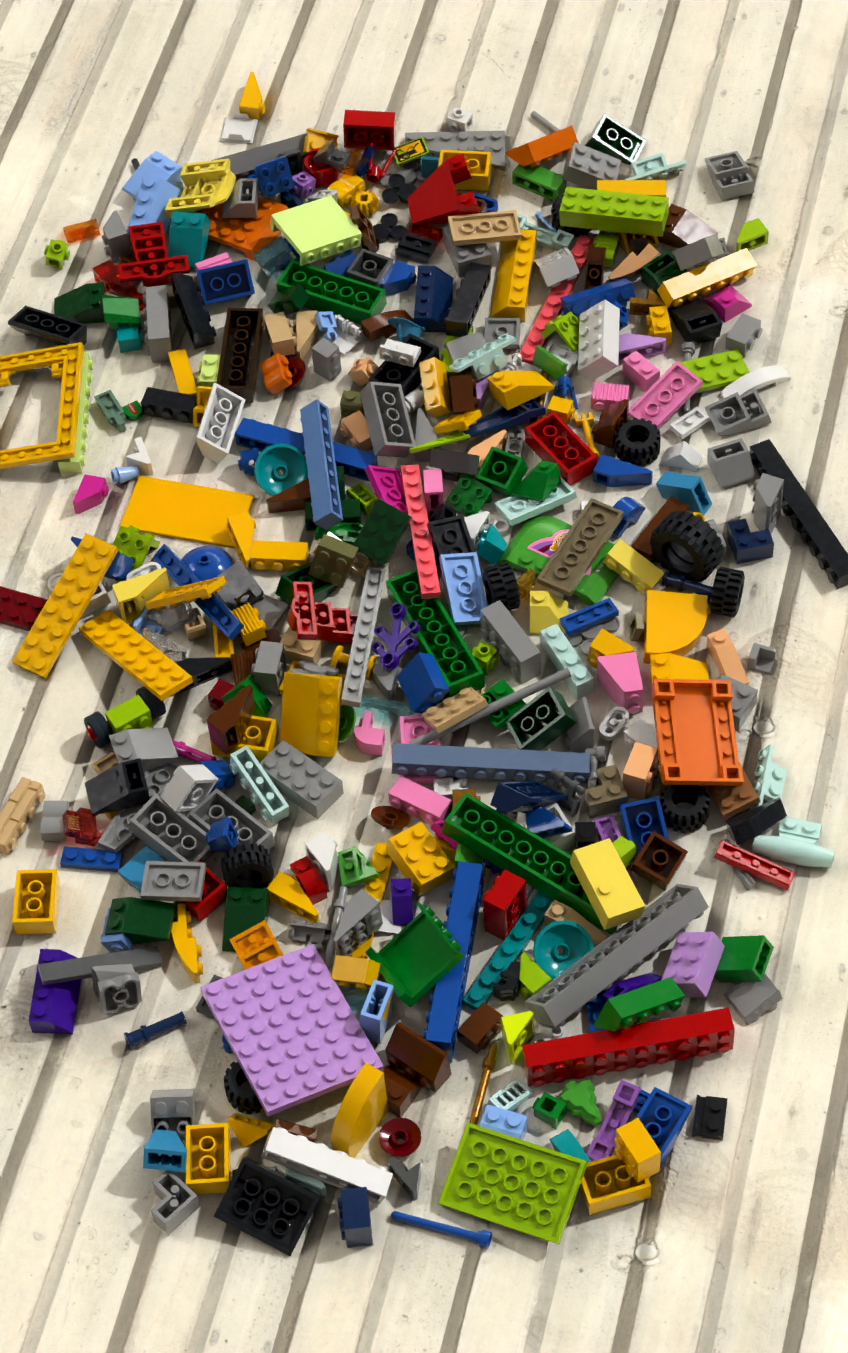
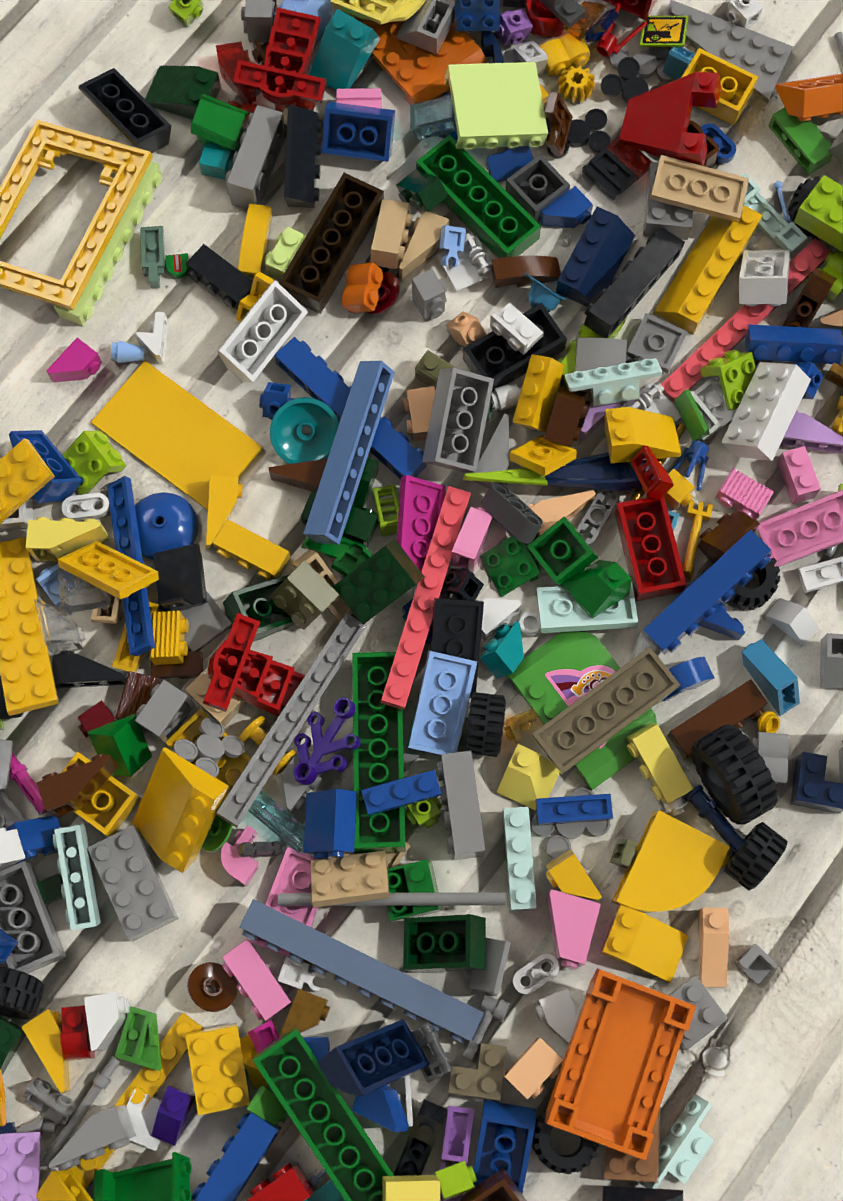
camera: 20 degrees right, 20 degrees up
(381, 722) = (259, 849): none -> flat silver axle
(464, 642) = (401, 792): none -> blue plate
(548, 404) = (661, 483): none -> red slope
(614, 453) = (707, 592): none -> blue brick

